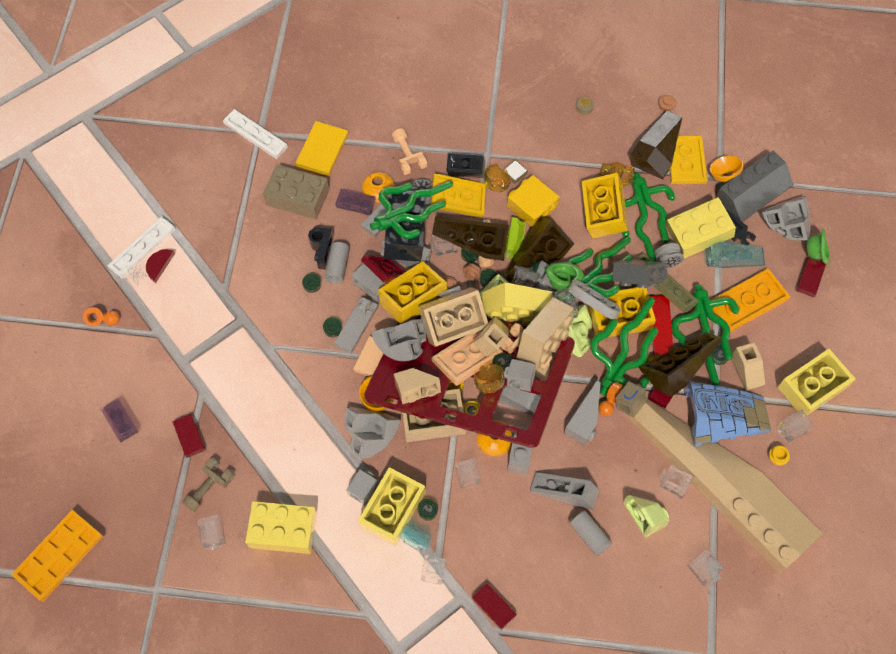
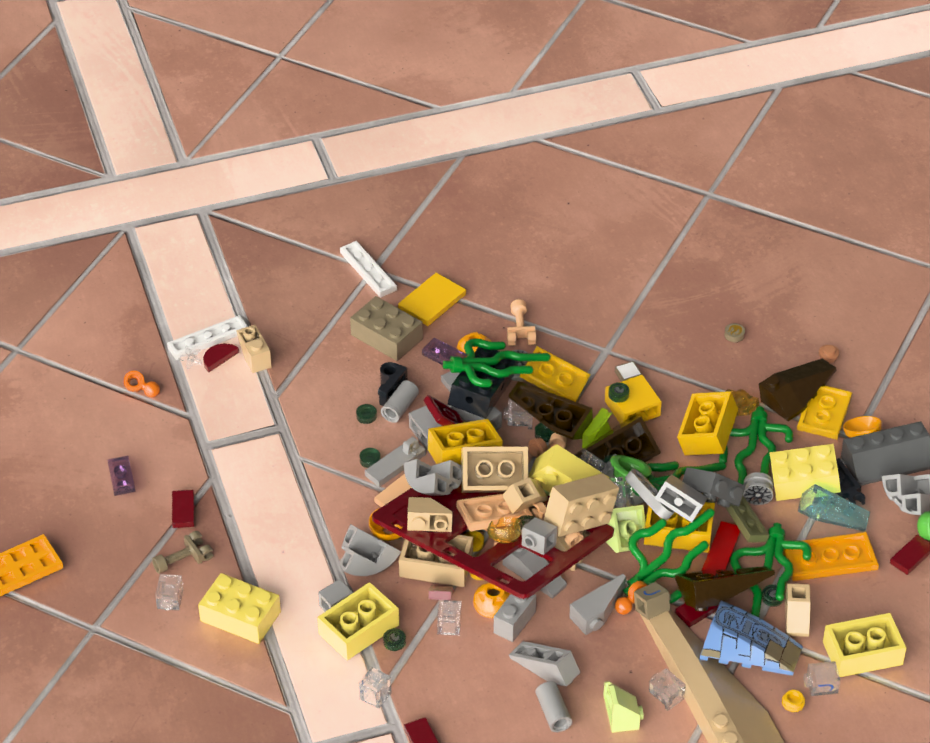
camera: 20 degrees right, 20 degrees down
(188, 249) = (254, 349): none -> tan slope
(416, 537) = (370, 656): clear light blue brick -> none
(451, 451) = (440, 592): none -> tile
(466, 165) = (575, 350): black brick -> none
(496, 179) = (602, 371): clear yellow hair -> none
(522, 200) = (618, 392): none -> clear green tile
(624, 297) = (681, 498): none -> light grey brick

